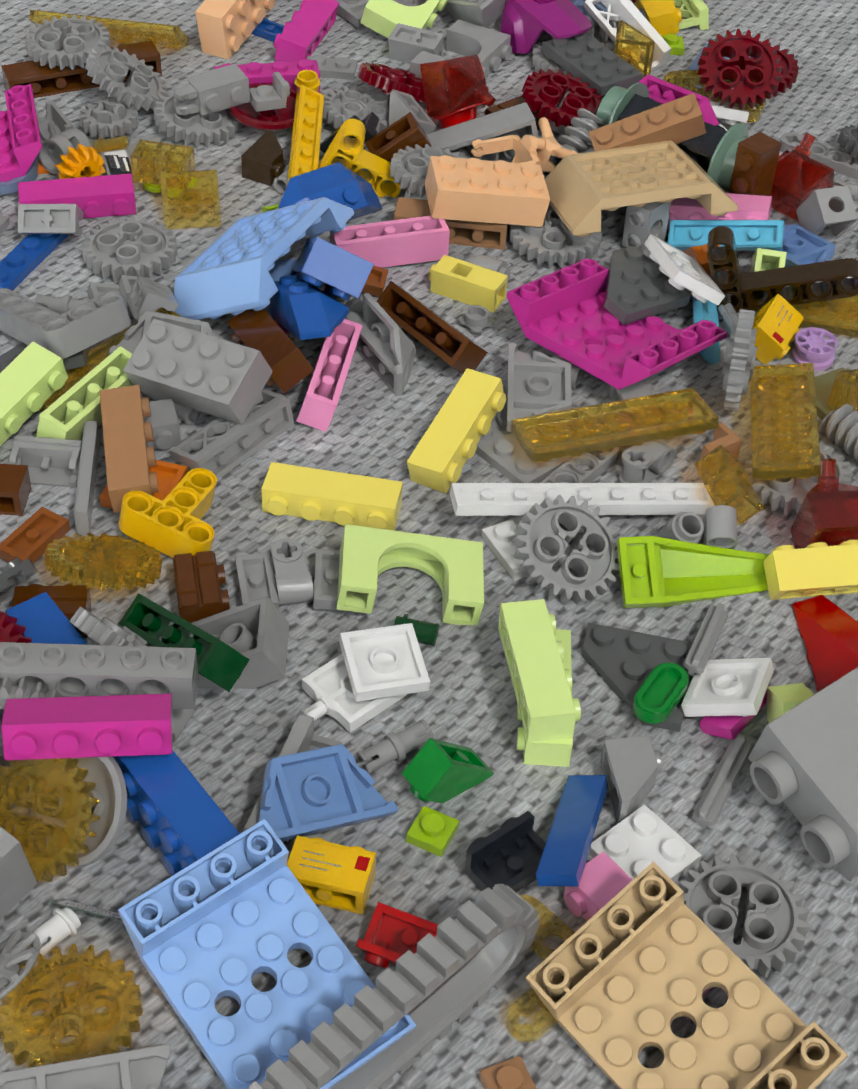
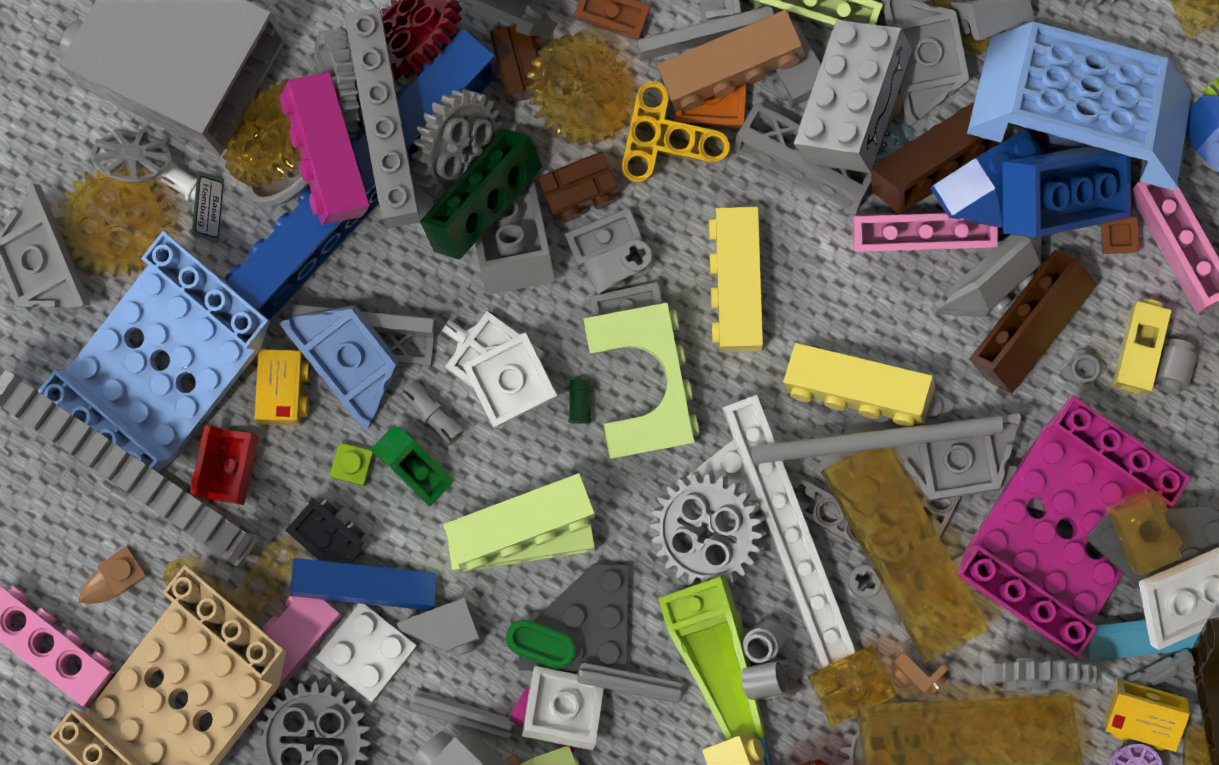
camera: 85 degrees right, 35 degrees up
(513, 418) = (876, 439): none -> light grey piece
(631, 272) = (1129, 515): none -> clear yellow brick

